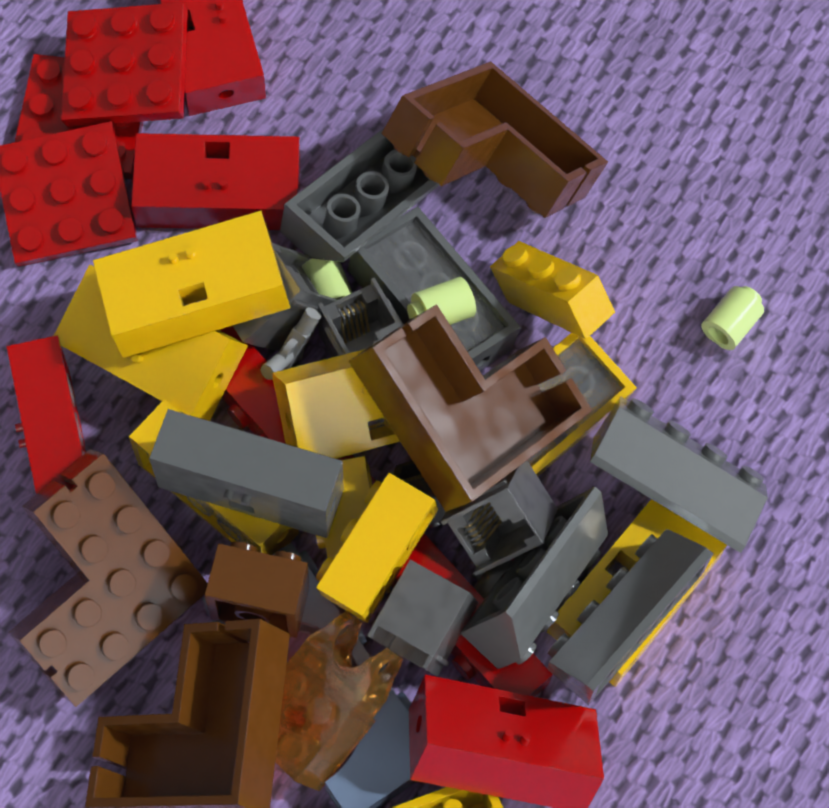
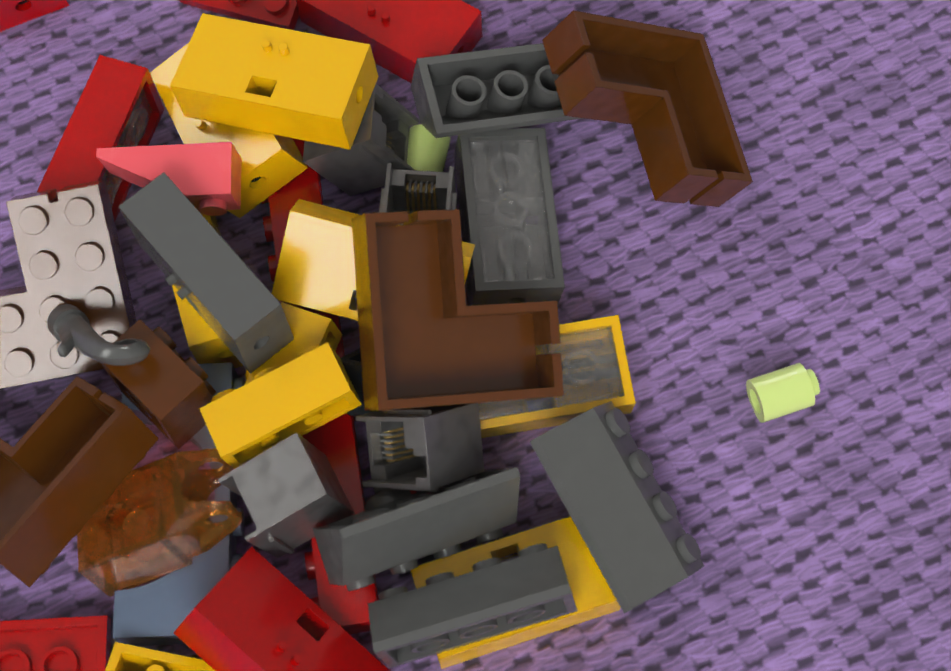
camera: 40 degrees right, 0 degrees up
(142, 412) = (202, 171): none -> coral slope
(153, 586) = (74, 331): none -> dark grey plant
(294, 345) = (352, 193): light grey piece -> none
(452, 298) = (496, 224): yellowish green brick -> none
(552, 289) = (615, 268): yellow brick -> none

